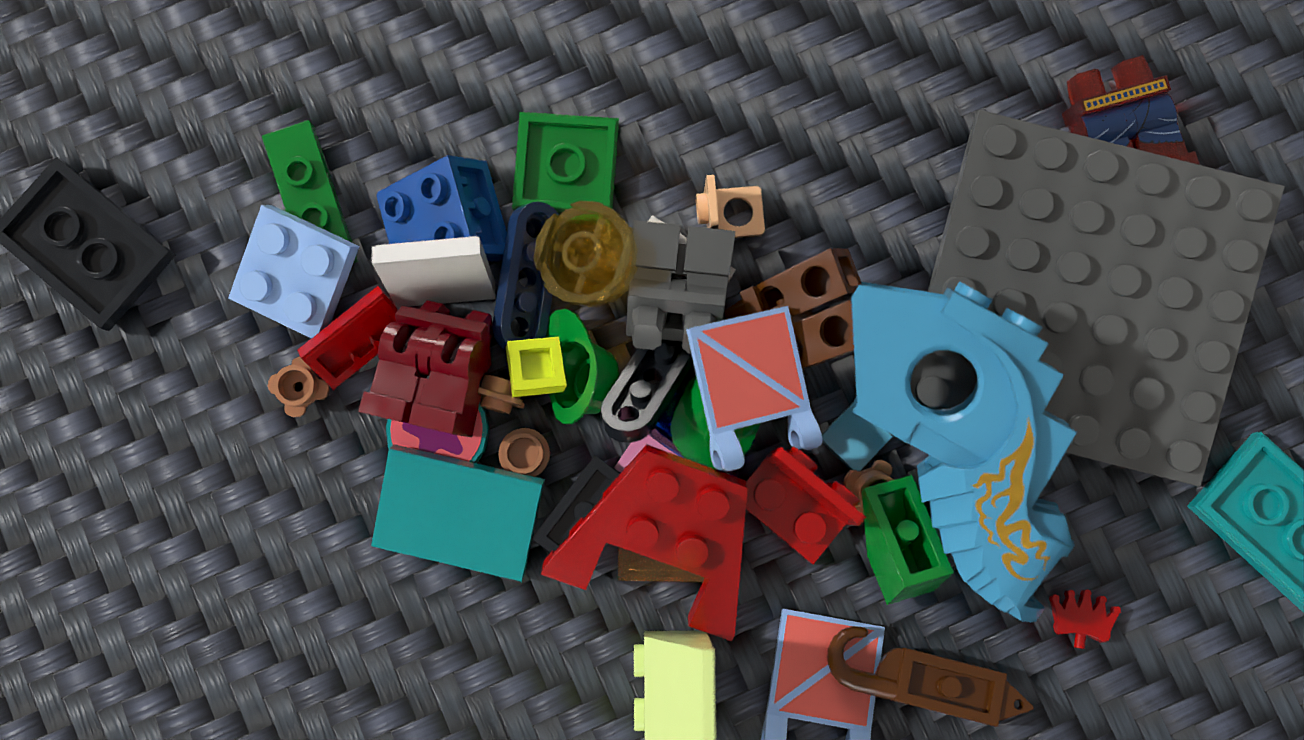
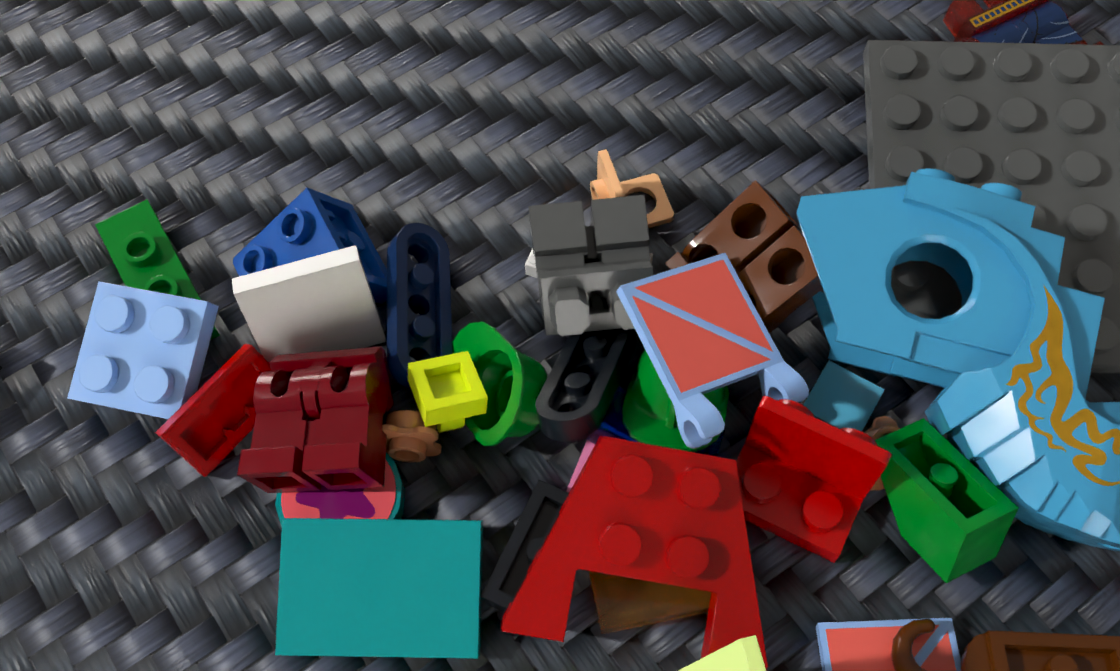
camera: 10 degrees left, 20 degrees down
(283, 386) = (151, 468): nougat plate -> none
(524, 452) = (452, 497): nougat plate -> none
(565, 160) = (443, 187): green tile -> none
(586, 254) = (484, 257): clear yellow cylinder -> none

